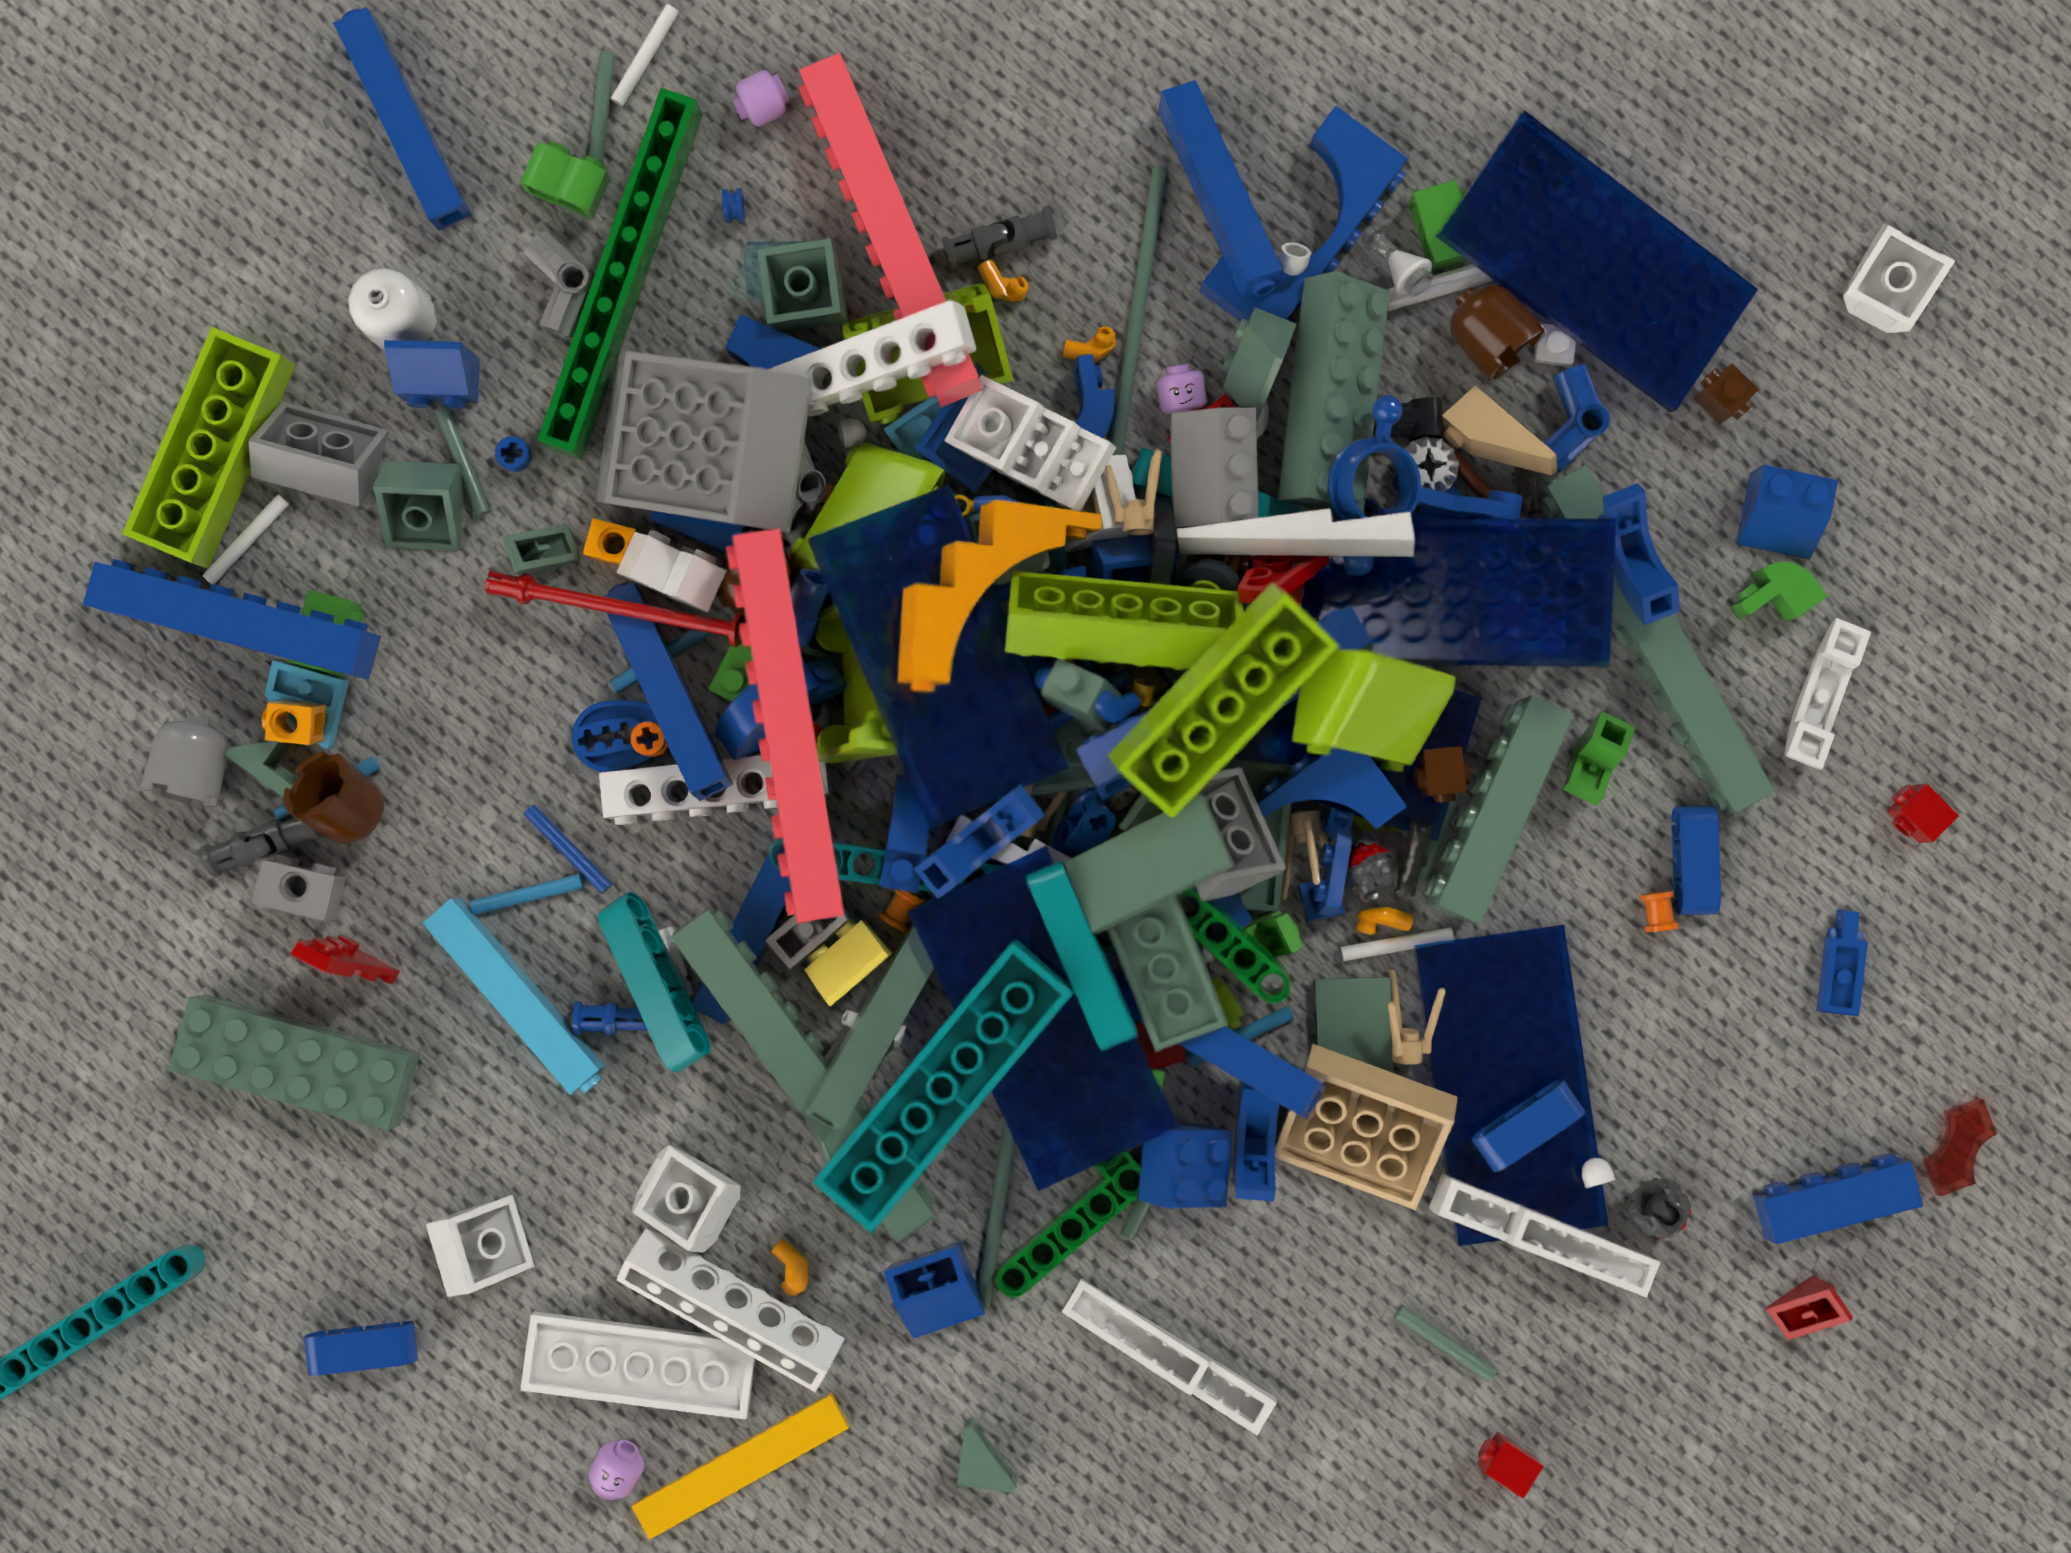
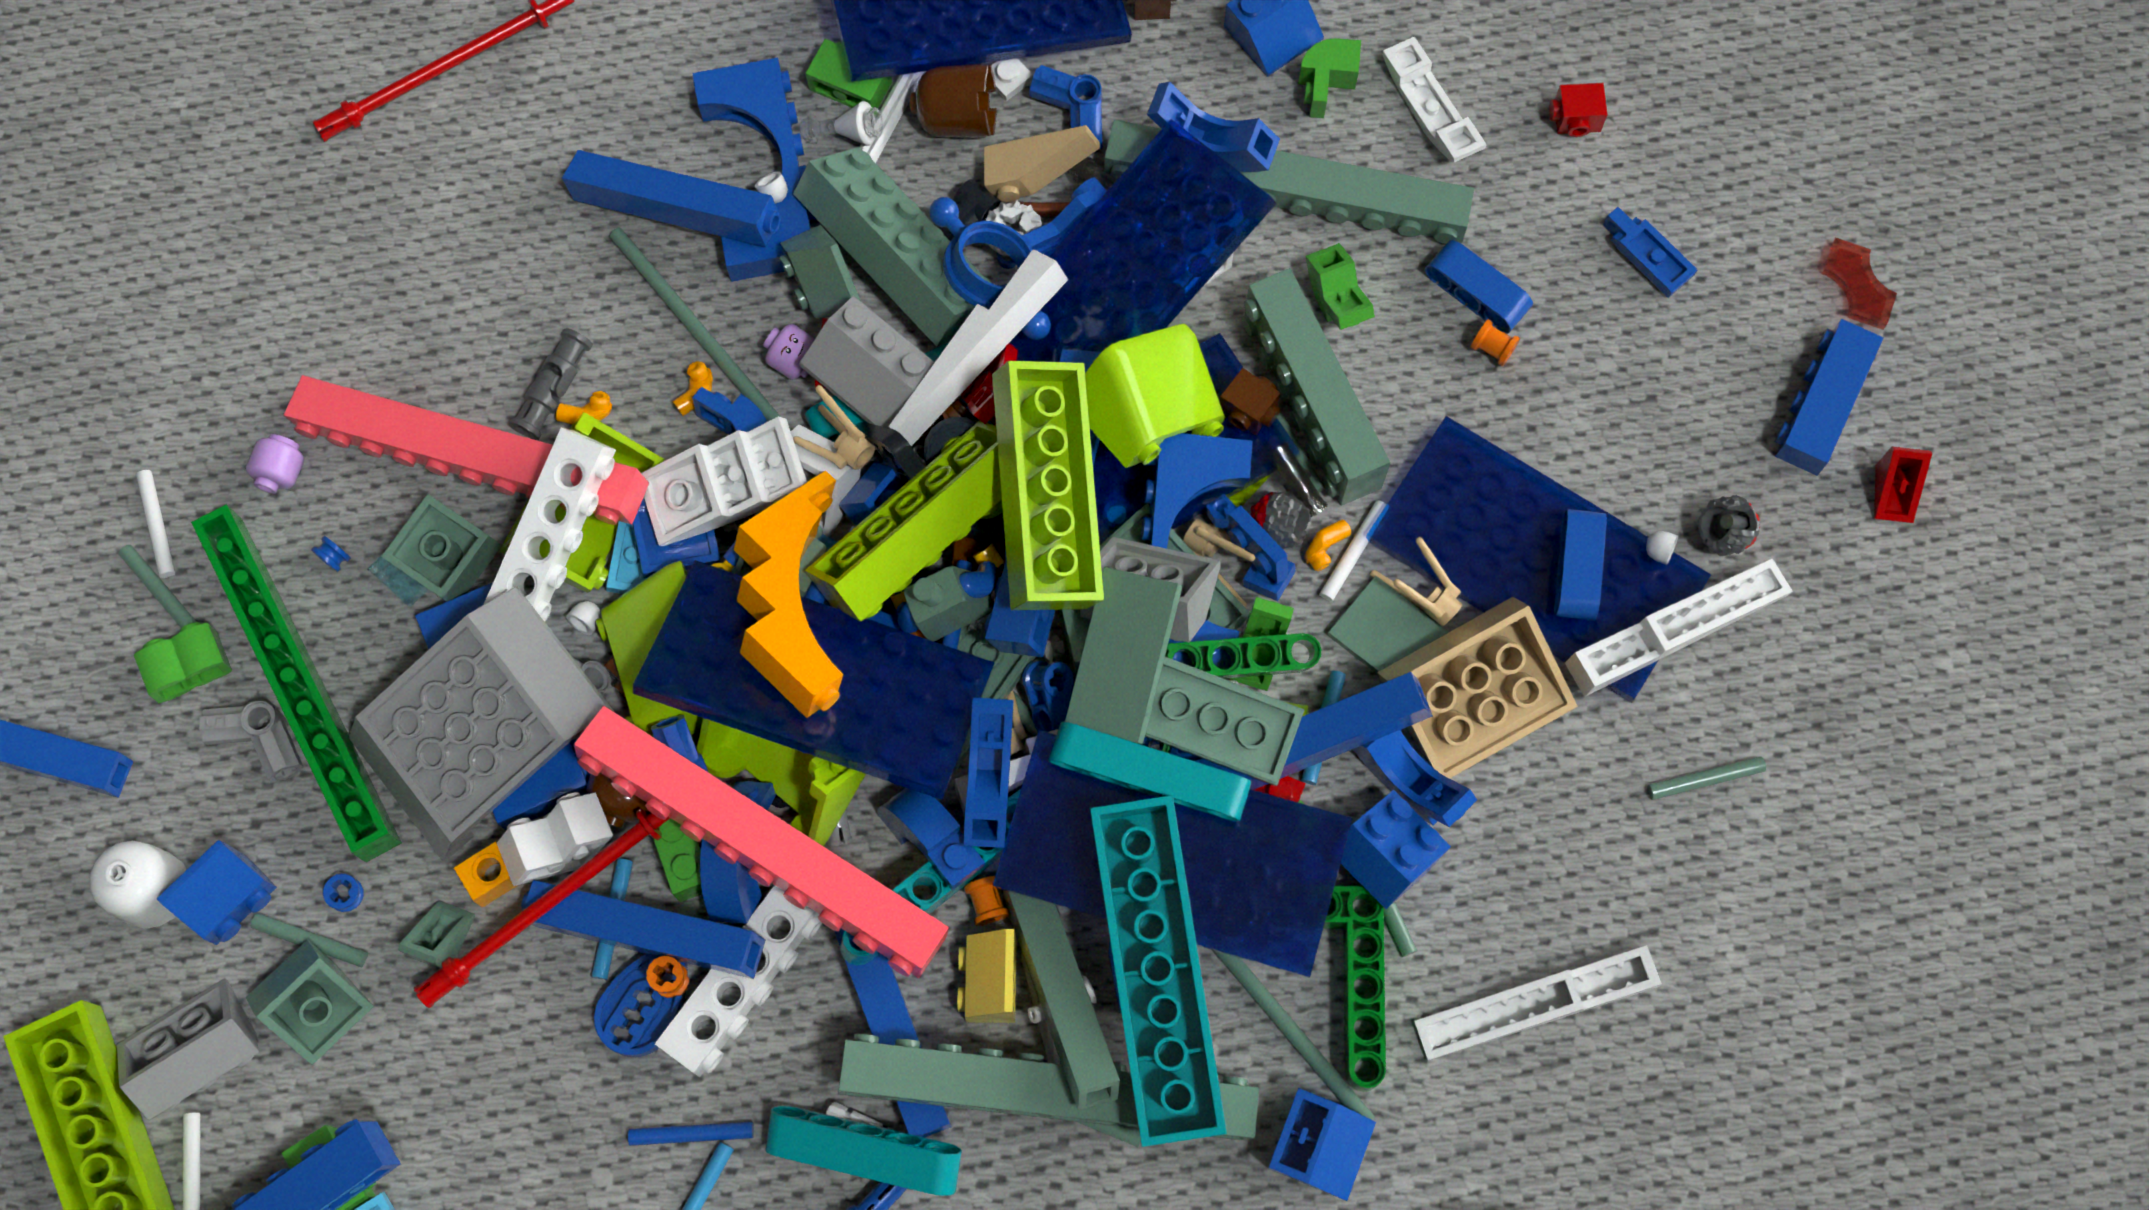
camera: 50 degrees left, 15 degrees down
(797, 941) = (937, 992): light grey brick -> none
(1509, 1464) = (1846, 805): red brick -> none

